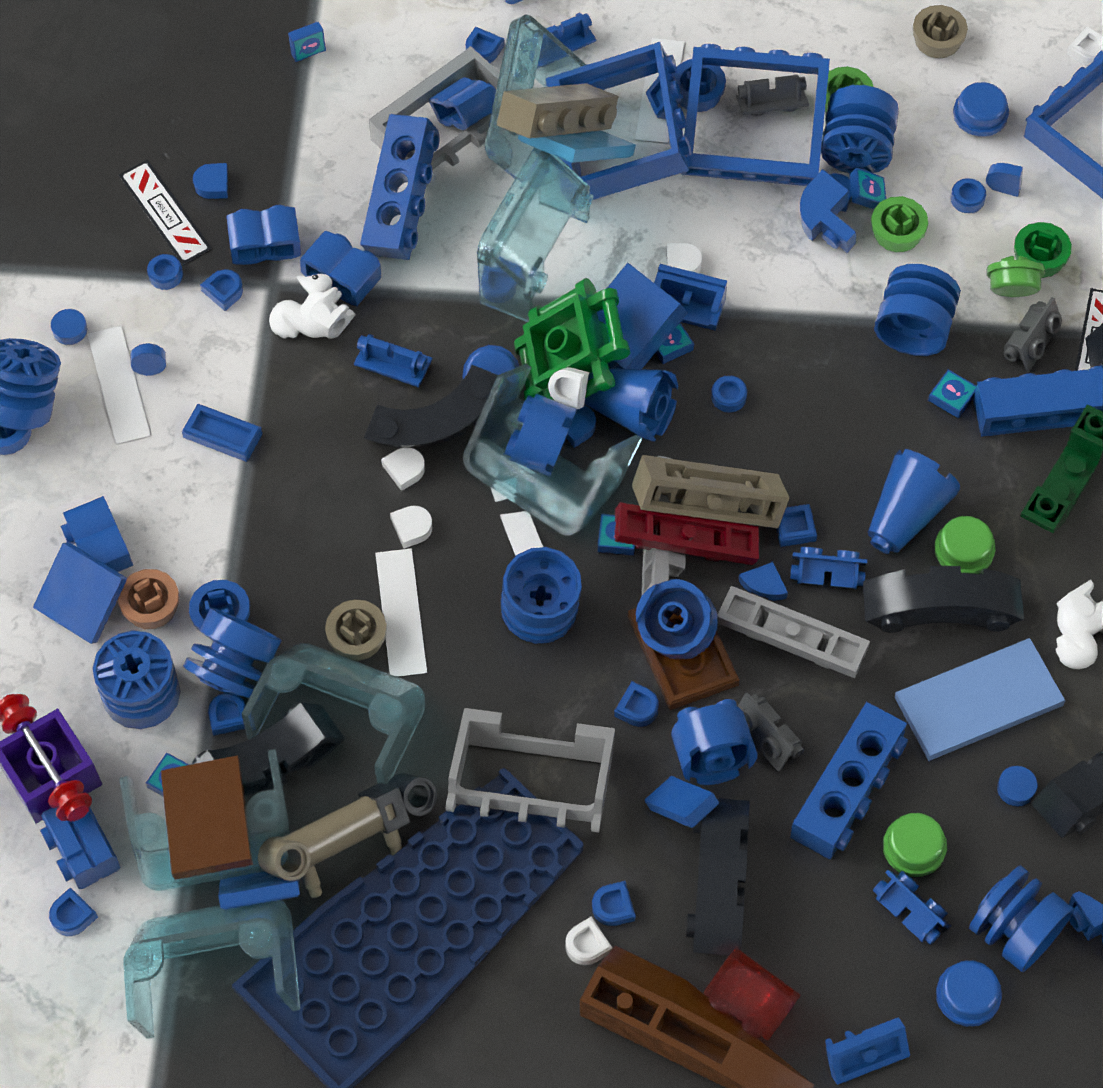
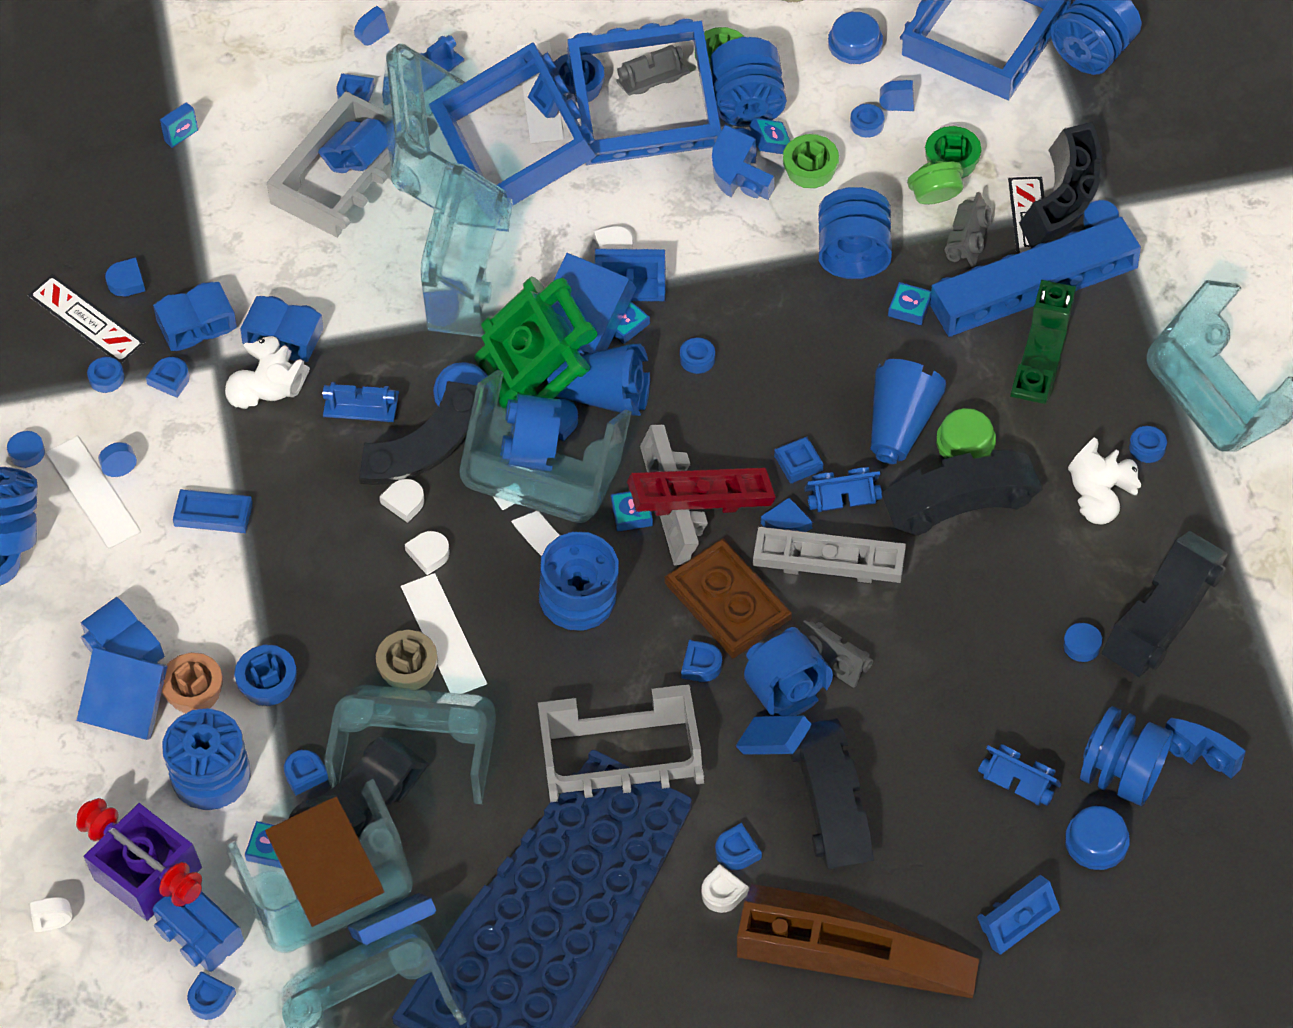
camera: 15 degrees left, 5 degrees down
(231, 653) = (295, 708): blue wheel -> none
(377, 810) = (482, 818): dark tan piece -> none
(401, 137) = (307, 188): blue brick -> none
(557, 110) = (458, 125): dark tan brick -> none
(569, 387) = (546, 380): white tile -> none
(583, 146) = (483, 152): dark azure tile -> none
(676, 598) = (706, 550): blue brick -> none
(710, 491) = (711, 444): dark tan brick -> none
(751, 995) = (895, 892): clear red brick -> none
(870, 730) = (932, 625): blue brick -> none
(915, 845) = (1005, 718): bright green piece -> none
(979, 699) = (1022, 573): medium blue tile -> none

